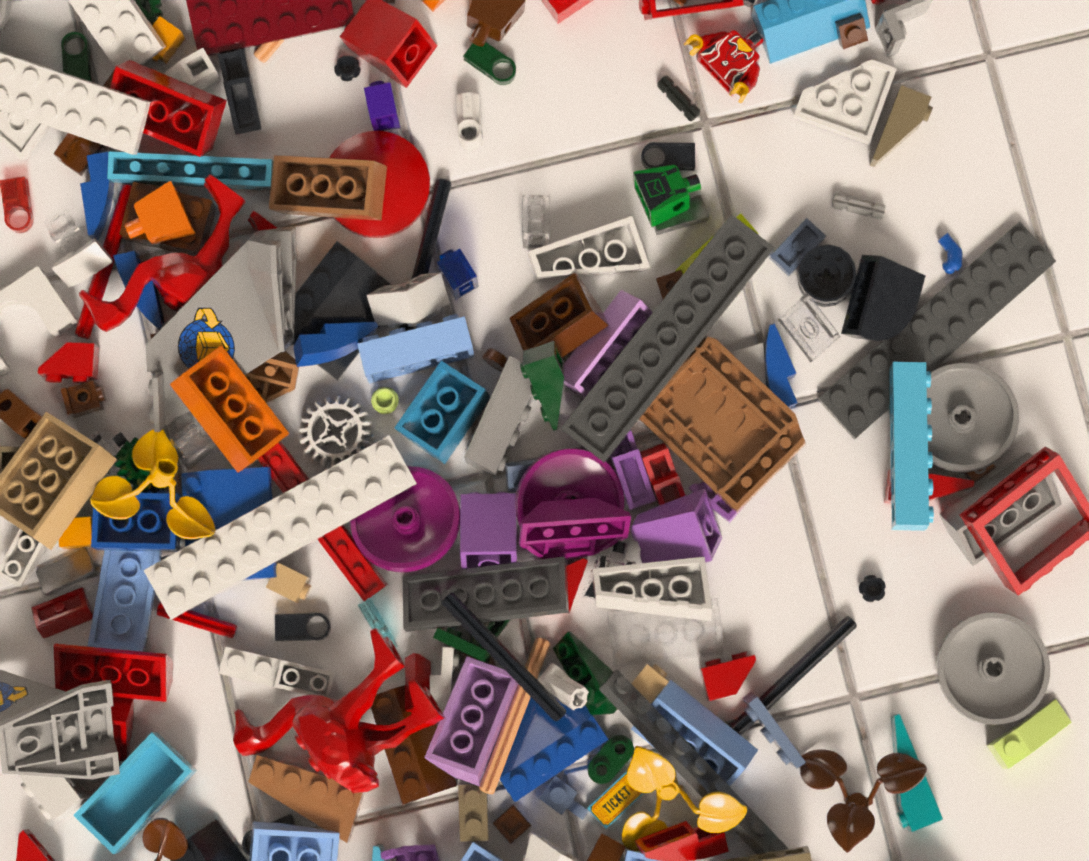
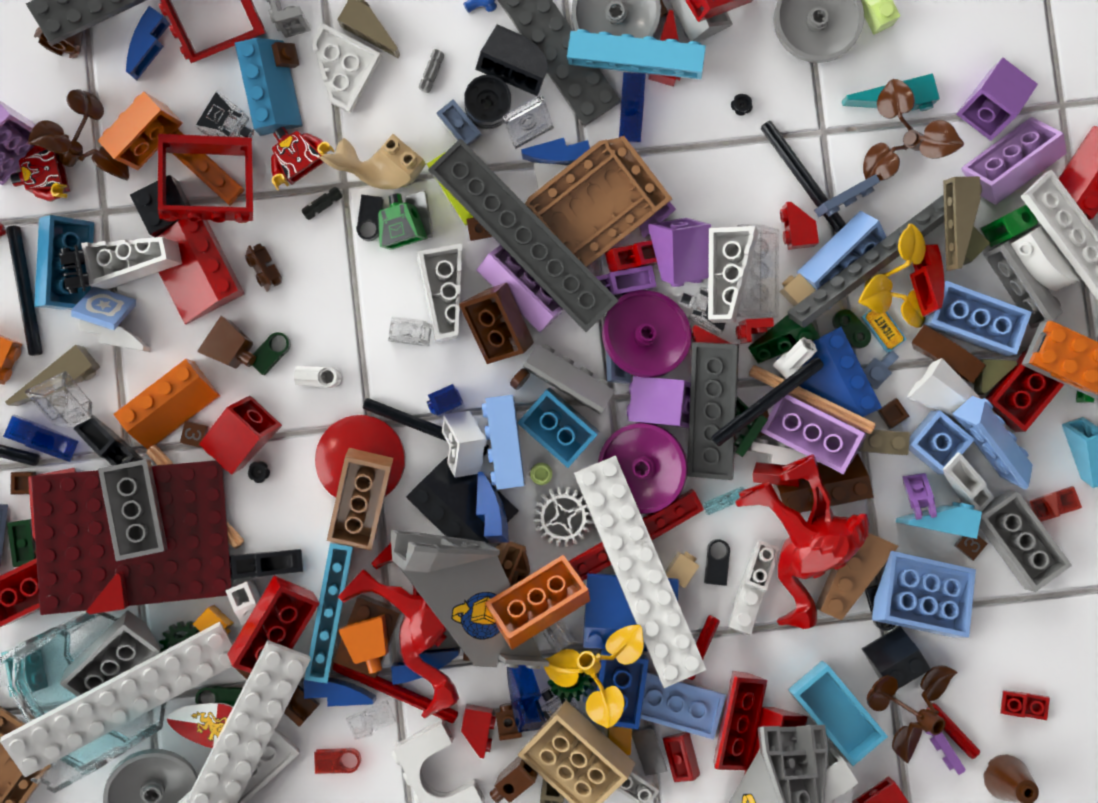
camera: 85 degrees left, 5 degrees up
(46, 40) = (200, 722): none -> shield
(82, 264) = (395, 710): white slope -> none
(113, 412) = (525, 698): none -> clear blue slope
(381, 106) = (296, 446): dark purple brick -> none
(546, 373) = (544, 336): dark green slope -> none
(573, 528) = (669, 331): magenta wedge -> none
(583, 45) = (258, 259): none -> reddish brown hinge
(596, 635) = (752, 326): none -> red bracket
(728, 168) = (389, 168): none -> tan hips
(848, 452) = (632, 106): none -> clear blue slope

